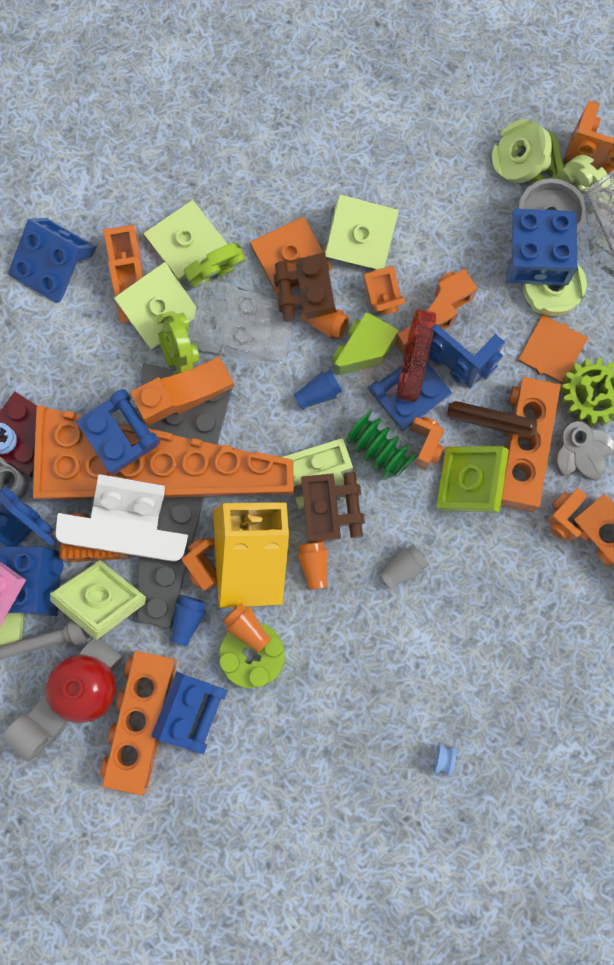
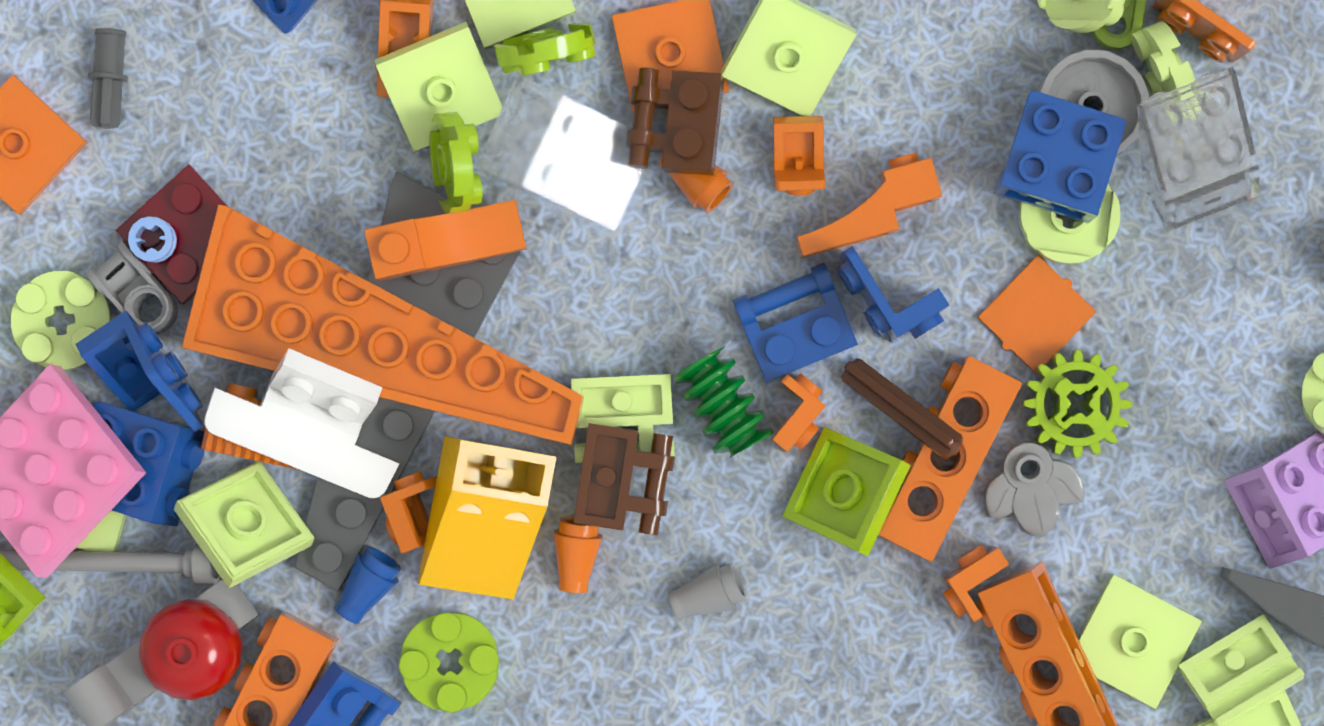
camera: 20 degrees right, 10 degrees up
(108, 437) = (316, 287): blue plate -> none
(246, 627) = (449, 622): orange cone -> none
(318, 390) = (655, 287): blue cone -> none
(367, 347) = (748, 238): lime slope -> none
(416, 355) = (814, 281): clear red beam -> none

